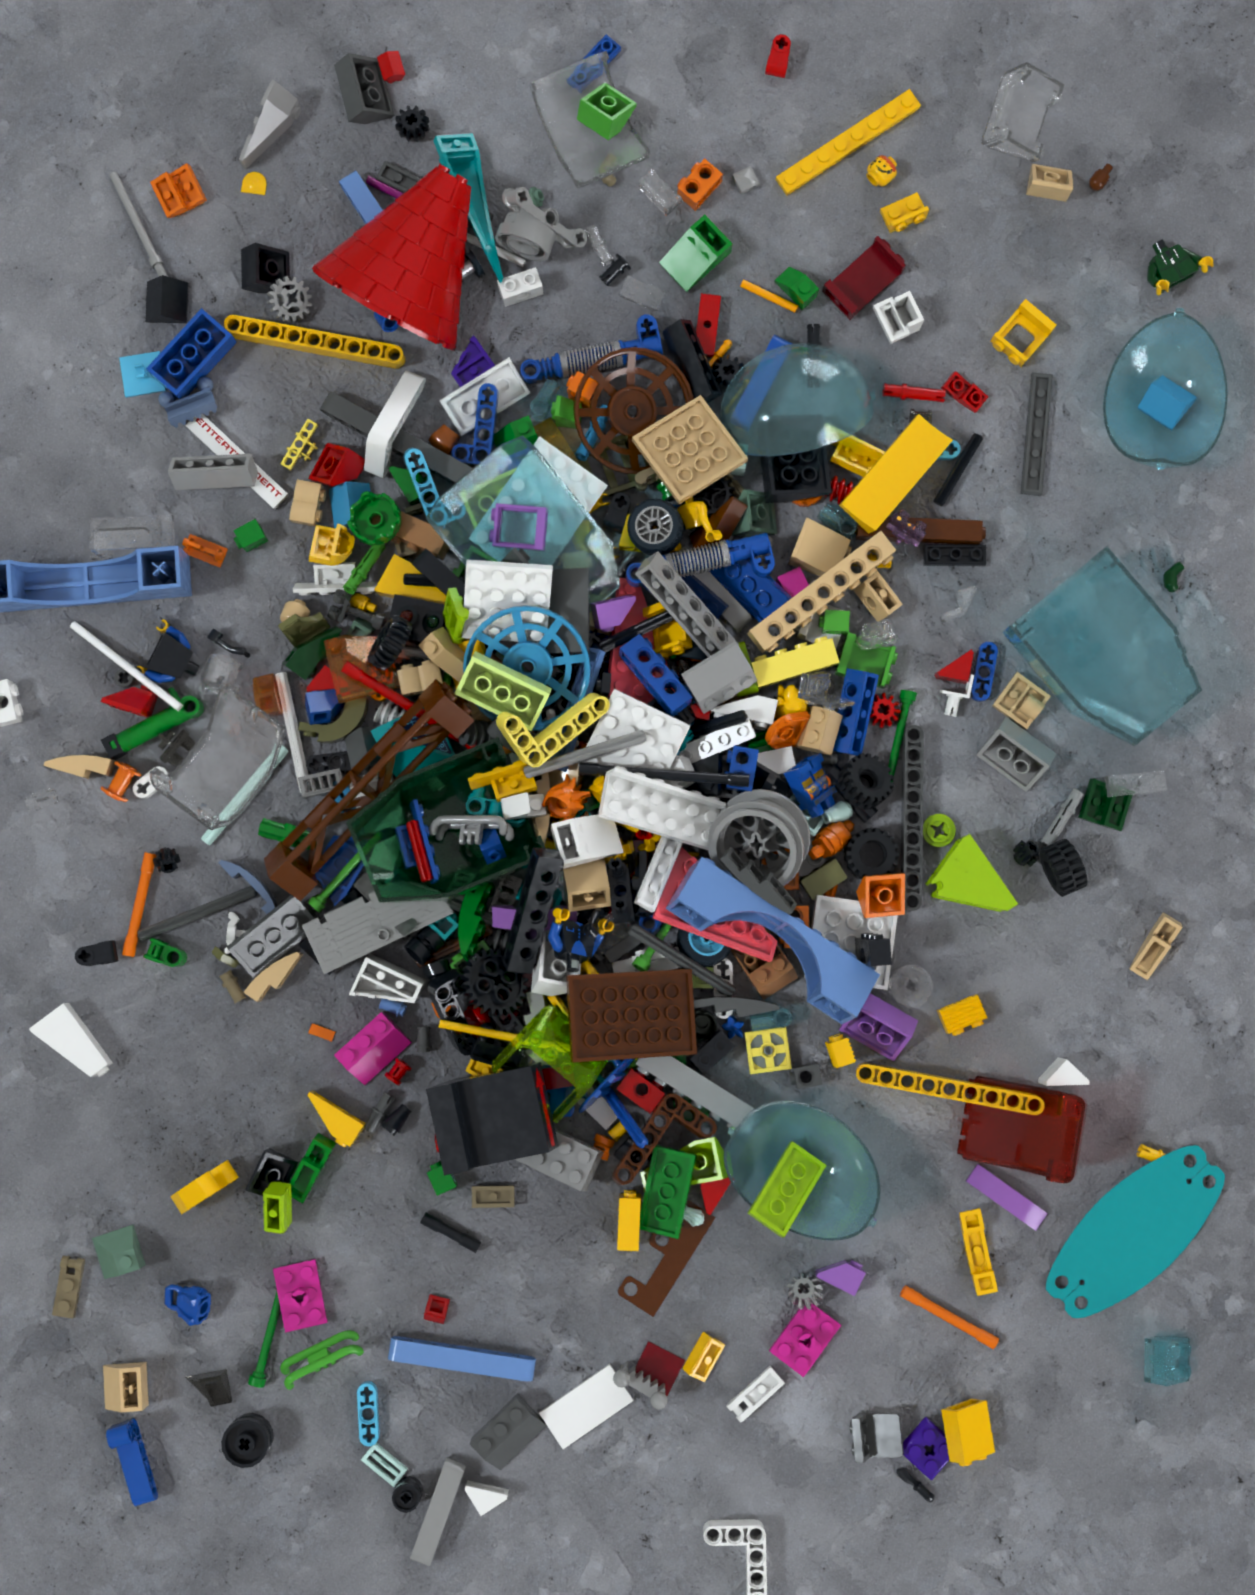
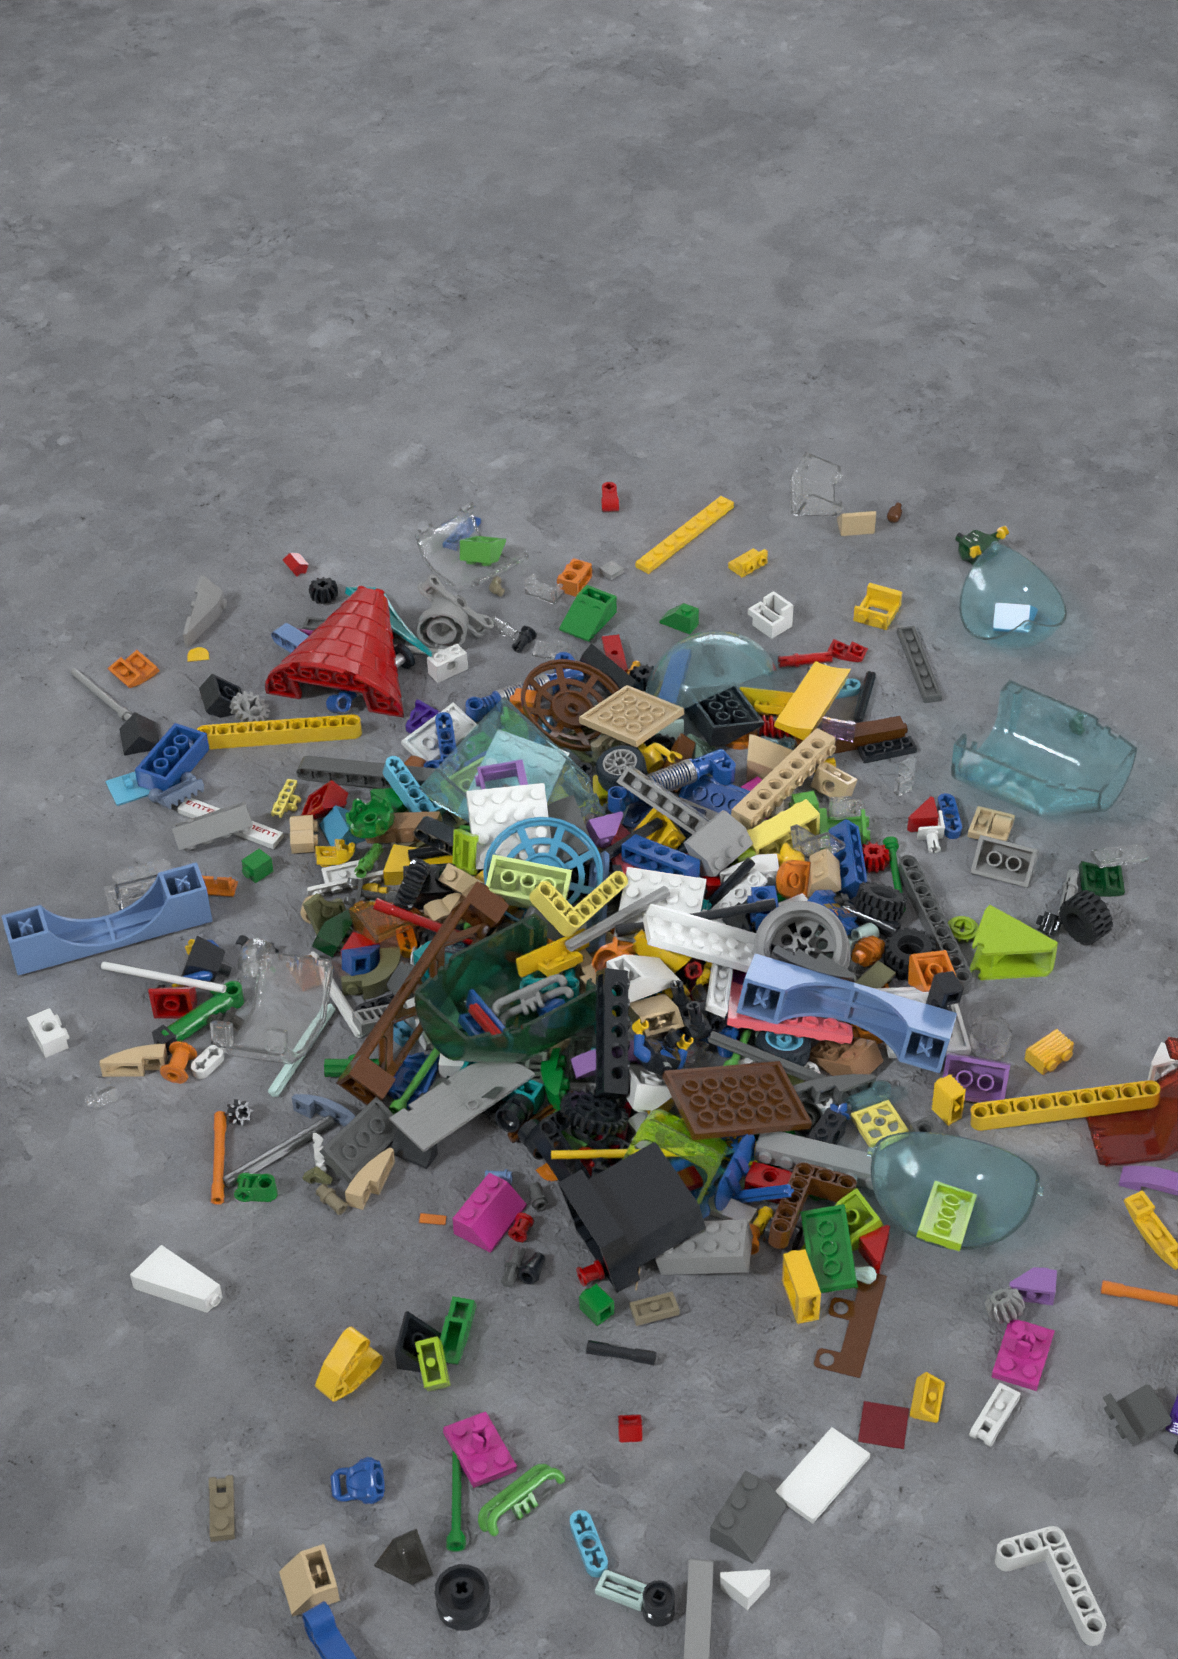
camera: 15 degrees left, 40 degrees down
(100, 953) = (187, 1203): black piece -> none
(119, 1252) = (271, 1461): sand green slope -> none
(338, 1121) = (470, 1280): yellow slope -> none
(363, 89) = (275, 579): dark grey slope -> none
(387, 981) = (486, 1151): white wedge -> none
(390, 422) = (359, 764): white beam -> none
(461, 1358) = (672, 1461): medium blue beam -> none
(523, 806) = (575, 970): white slope -> none
(651, 1389) = (872, 1434): light grey gear -> none
(769, 296) = (659, 630): light orange bar -> none
(864, 278) = (734, 603): dark red panel -> none
(881, 170) = (719, 541): yellow head -> none

